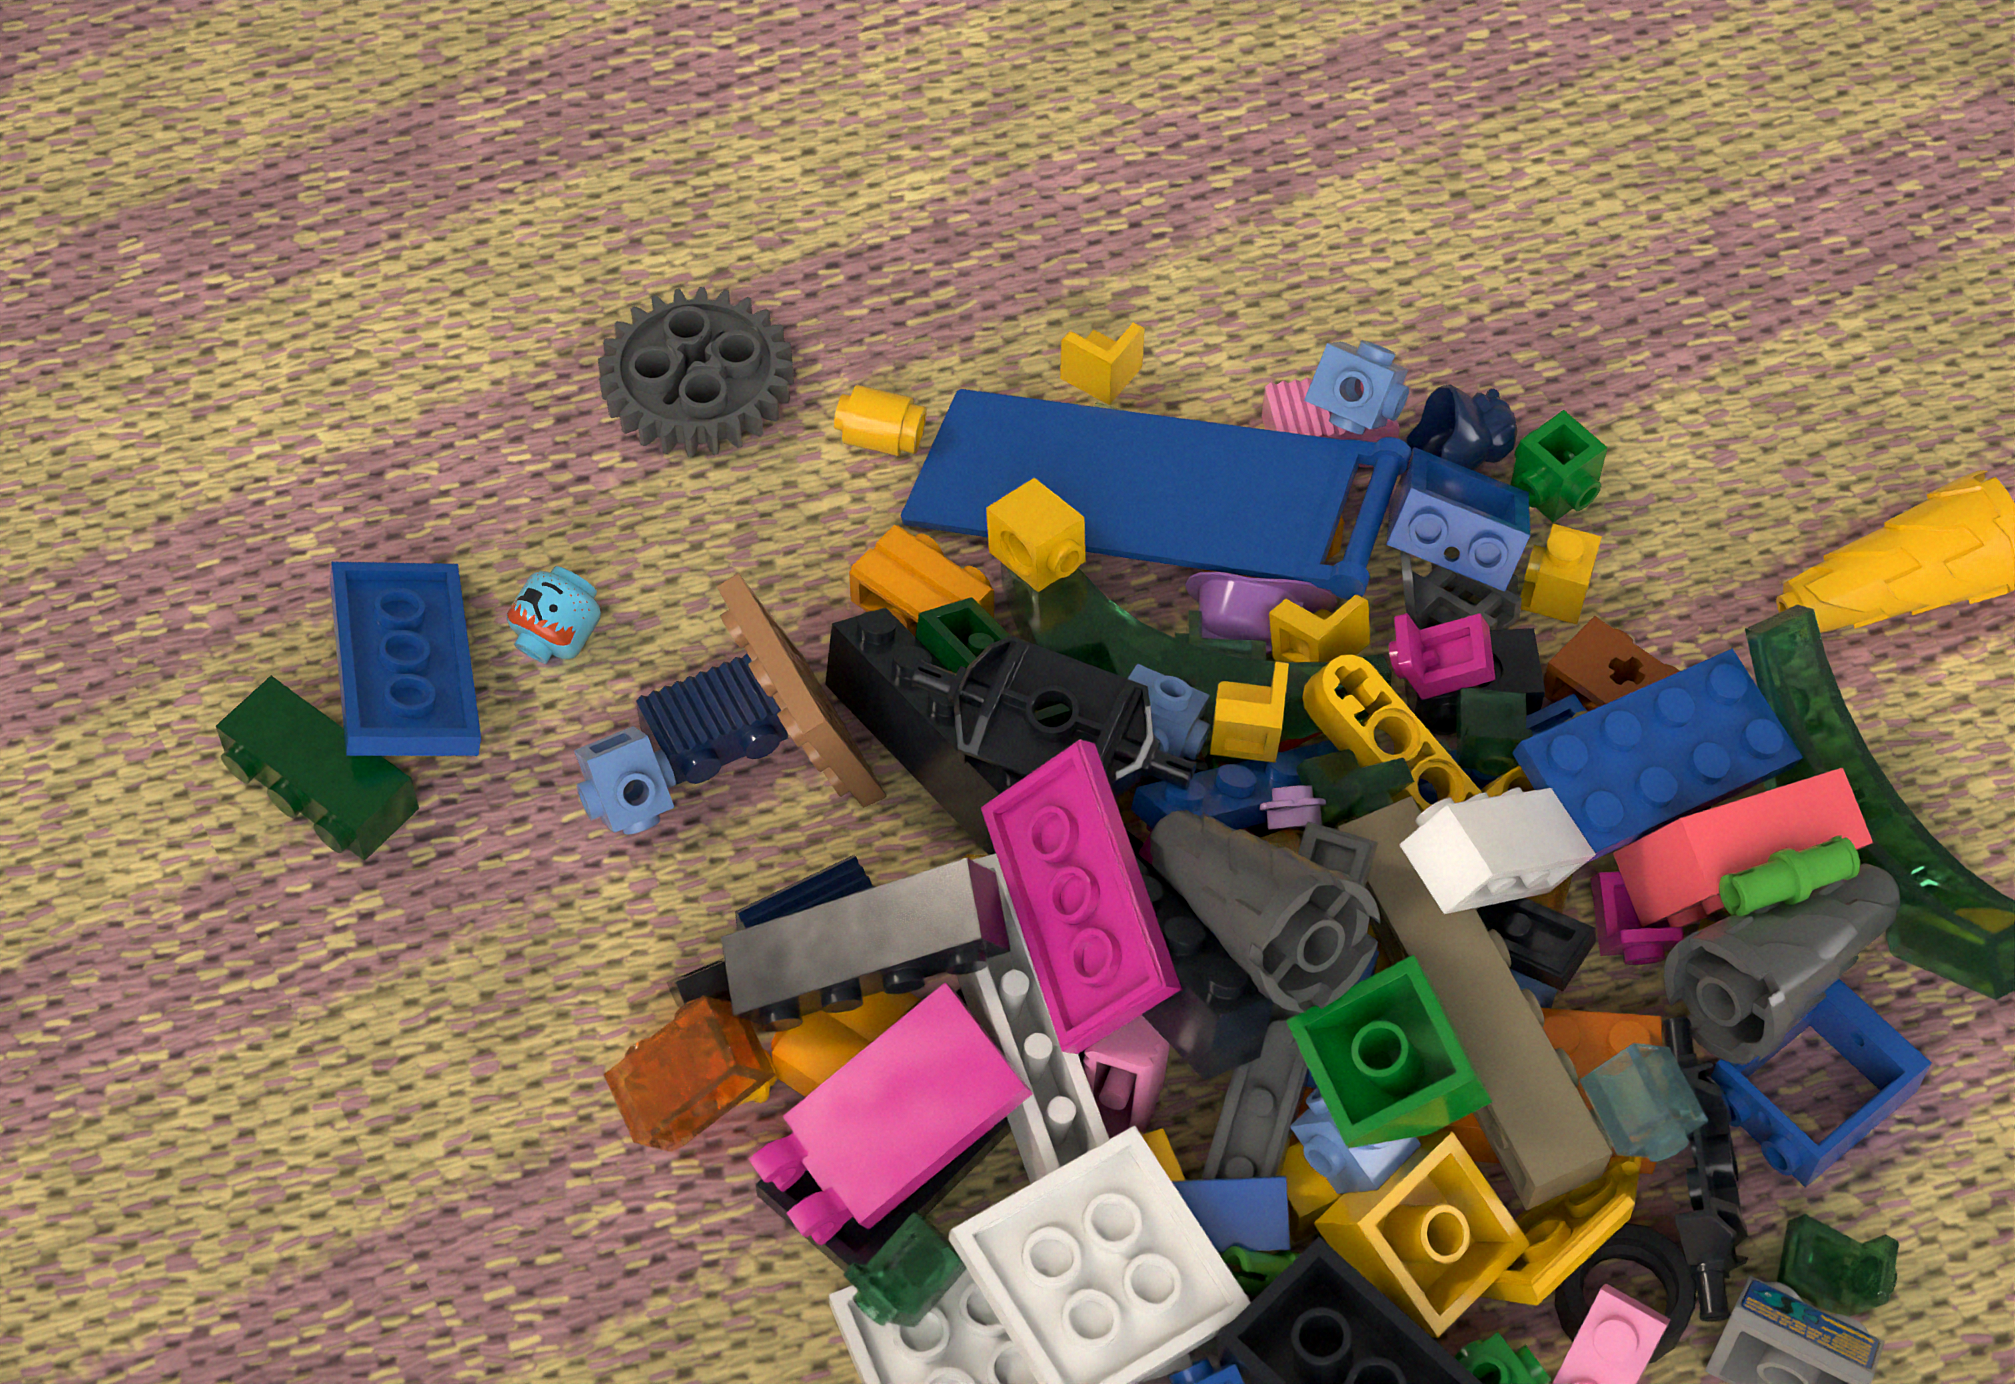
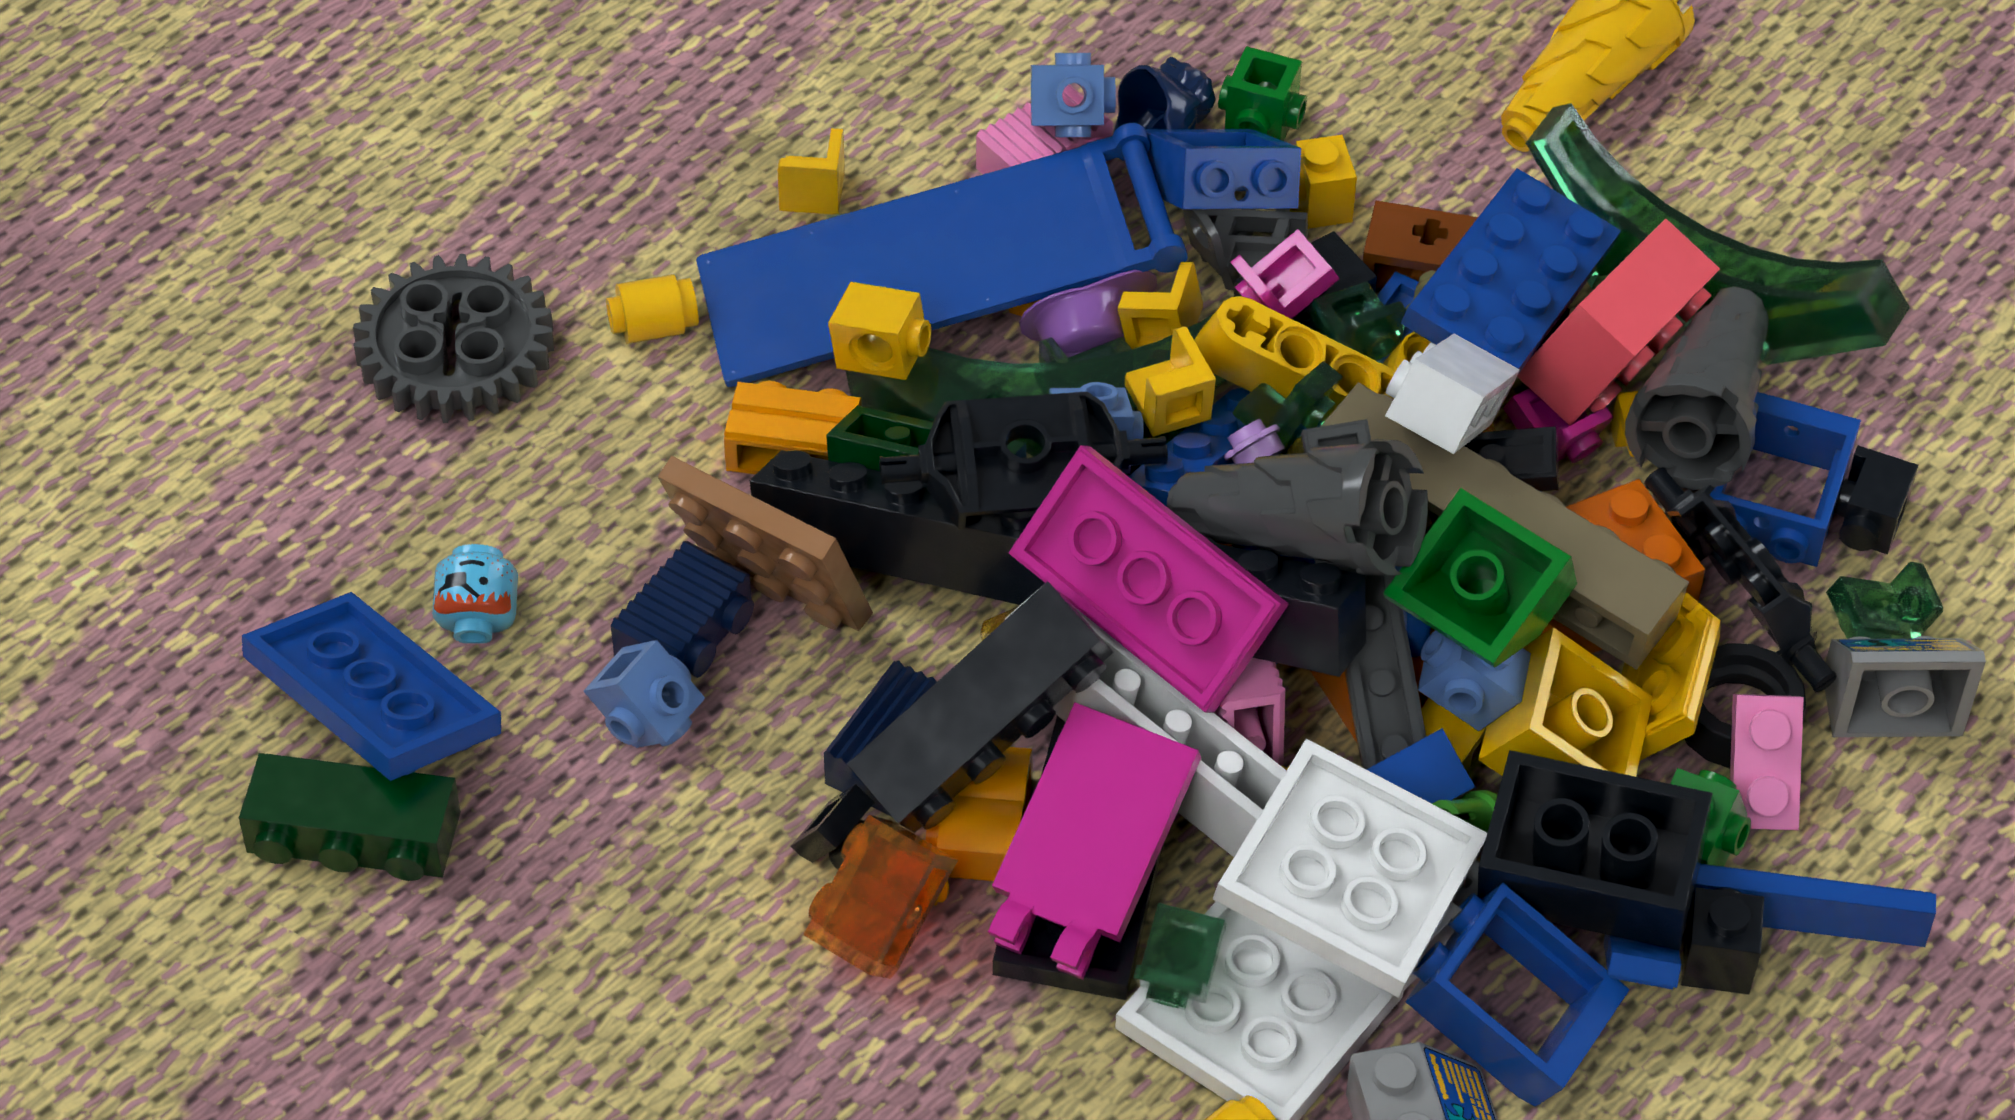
camera: 30 degrees left, 5 degrees down
(1644, 1102) = (1687, 534): clear light blue brick -> none
(1789, 876) = (1684, 314): bright green pin -> none
(1900, 1151) = (1874, 499): none -> black brick

